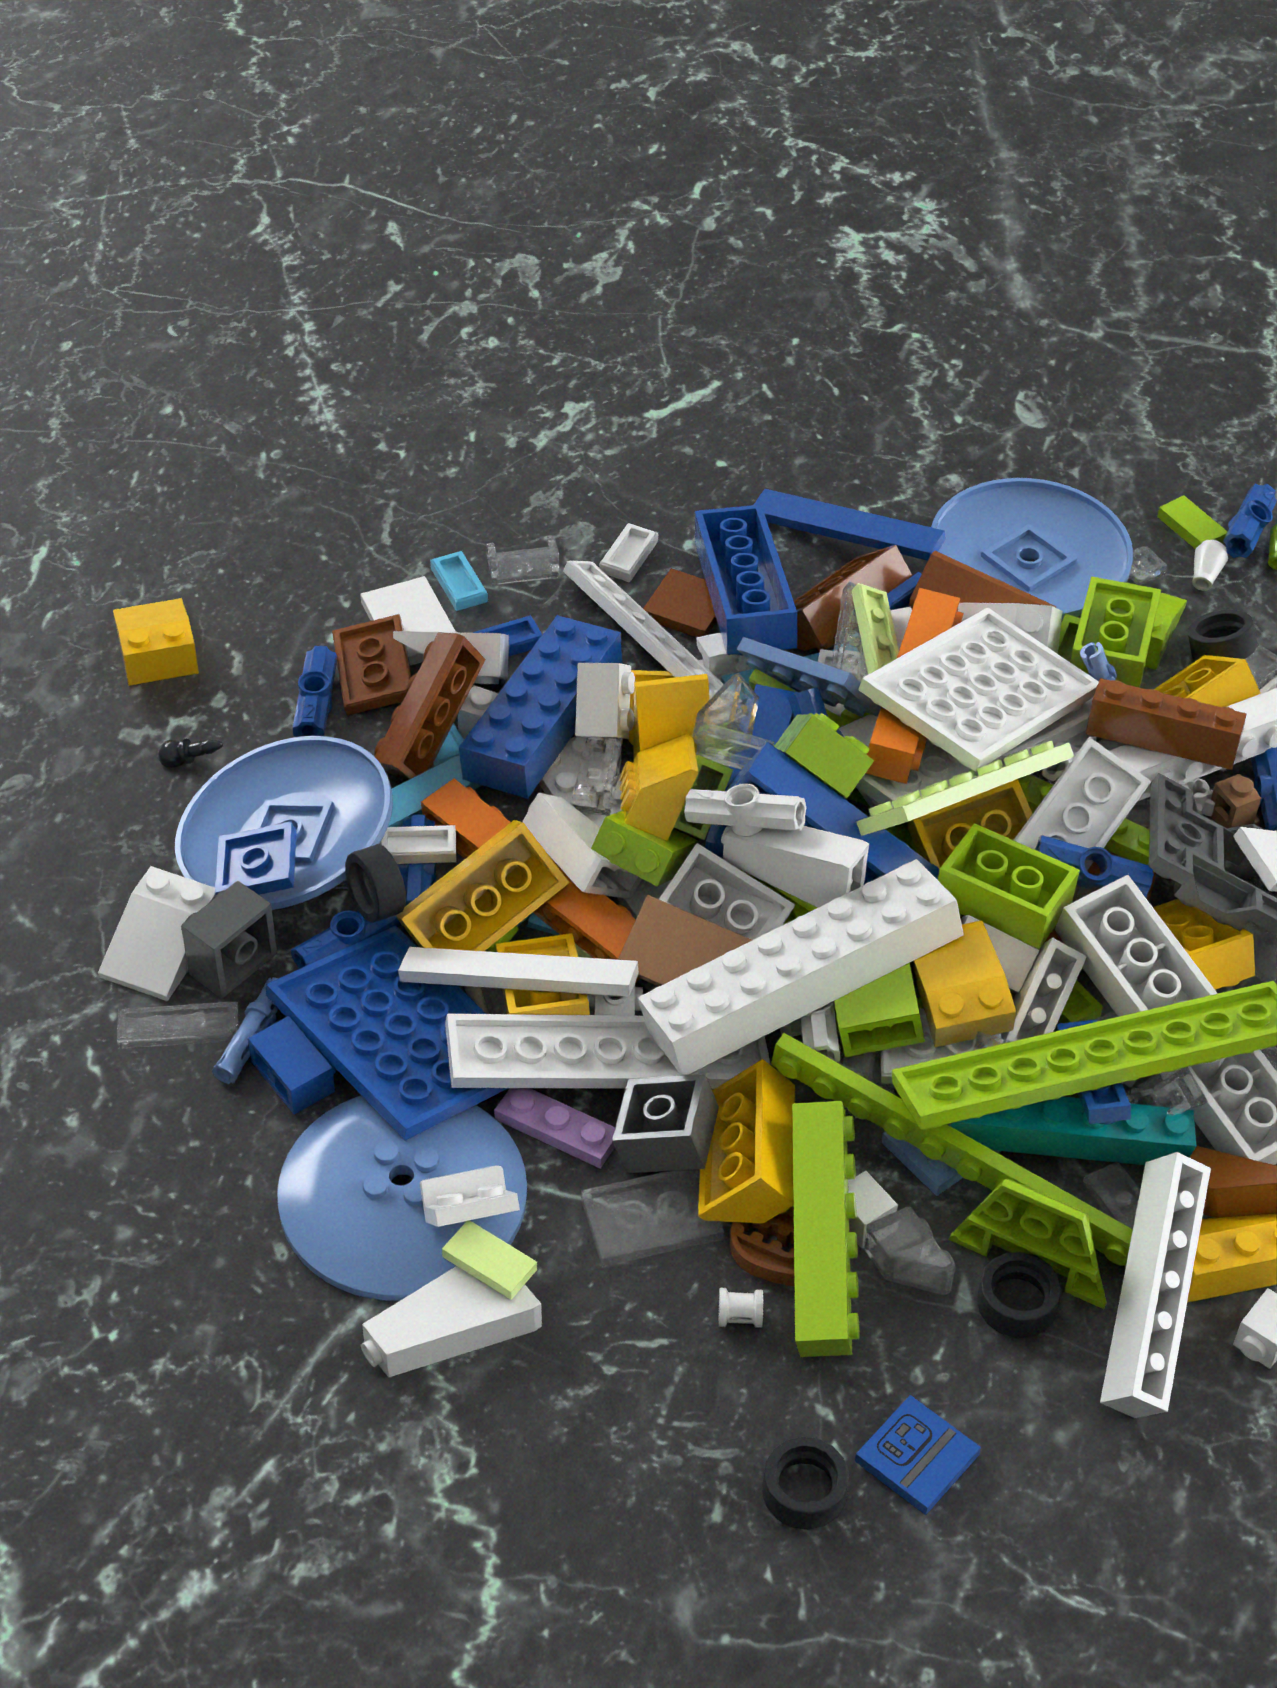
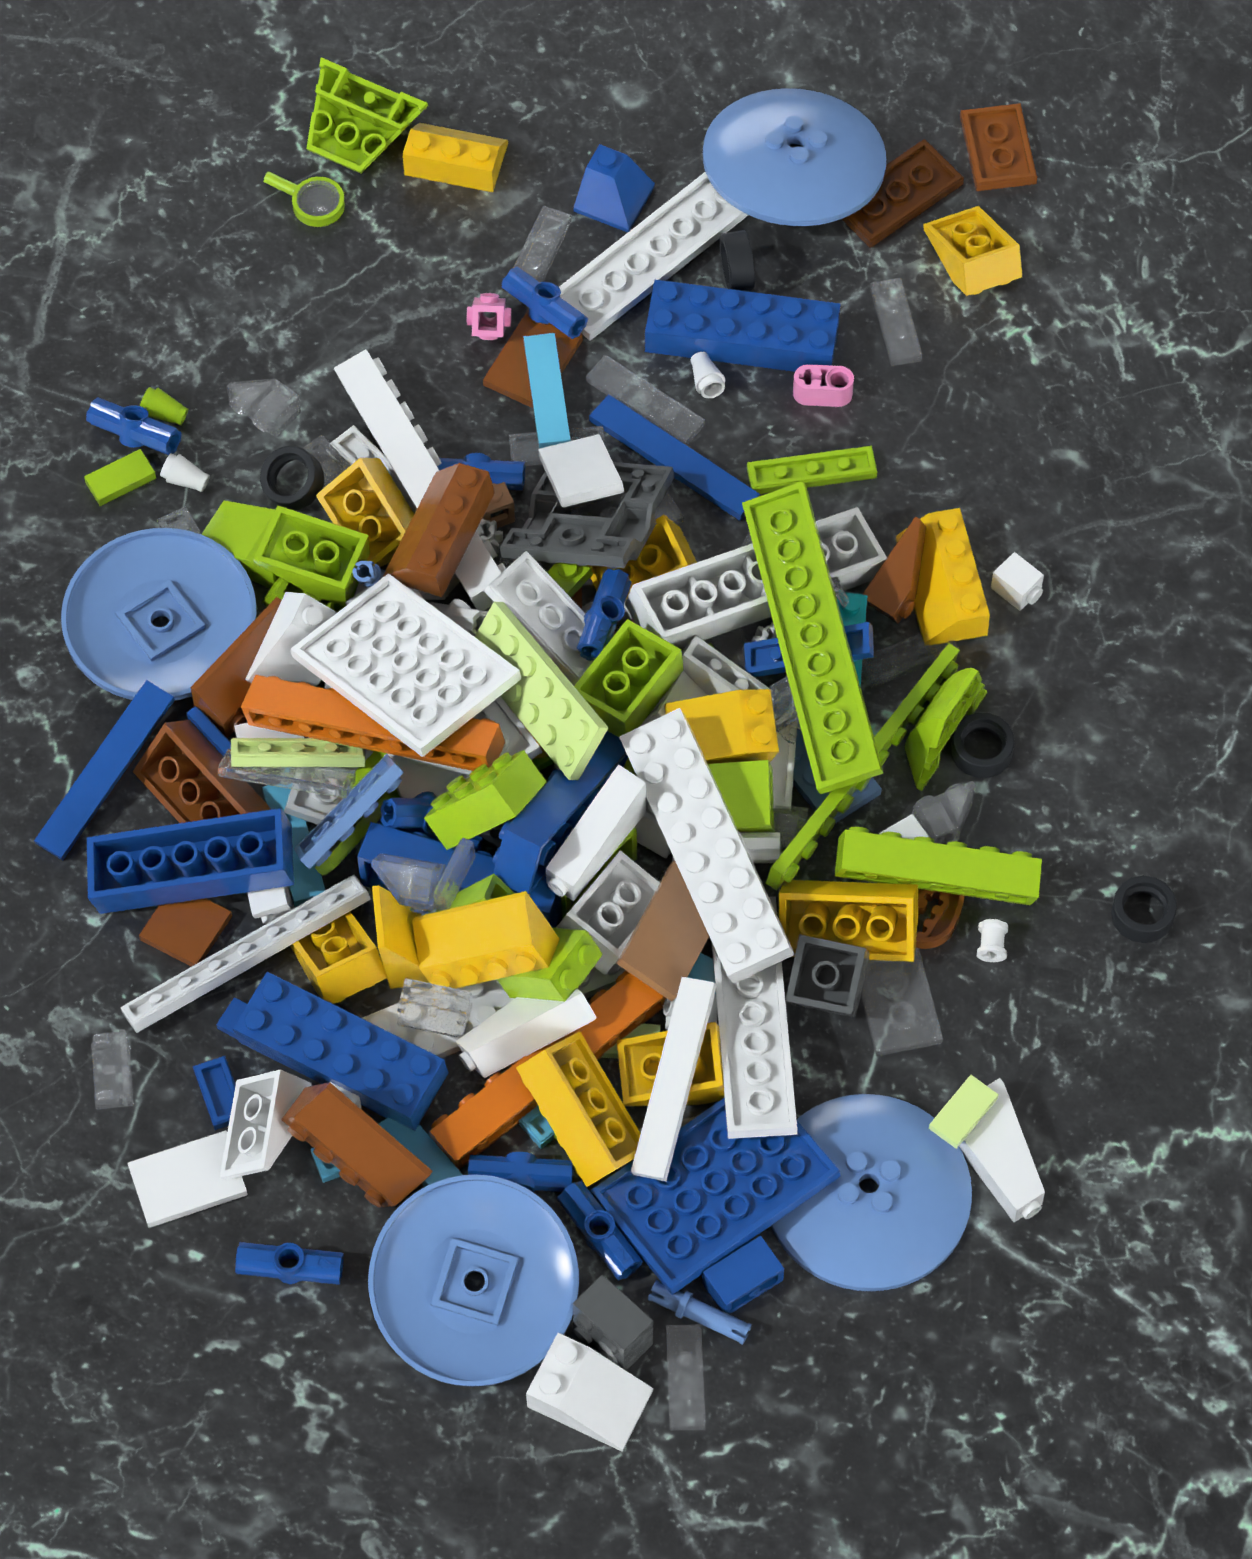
camera: 85 degrees left, 15 degrees up
(156, 641) = (188, 1419): yellow slope -> none
(175, 753) = (349, 1396): black bar -> none
(258, 859) = (535, 1295): plate -> none
(372, 664) = (250, 1210): dark orange tile -> none
(375, 883) = (579, 1188): black tyre -> none
(421, 844) = (511, 1155): white tile -> none
(459, 581) = (130, 1133): medium azure tile -> none
(466, 1196) = (909, 1125): white bracket -> none
(557, 1125) = (814, 1059): lavender plate -> none
(604, 700) = (360, 987): white slope -> none
(628, 552) = (105, 974): white tile -> none
(745, 809) = (570, 840): white piece -> none
(917, 1454) = (1115, 833): blue tile -> none
(1156, 1286) = (998, 642): white brick -> none

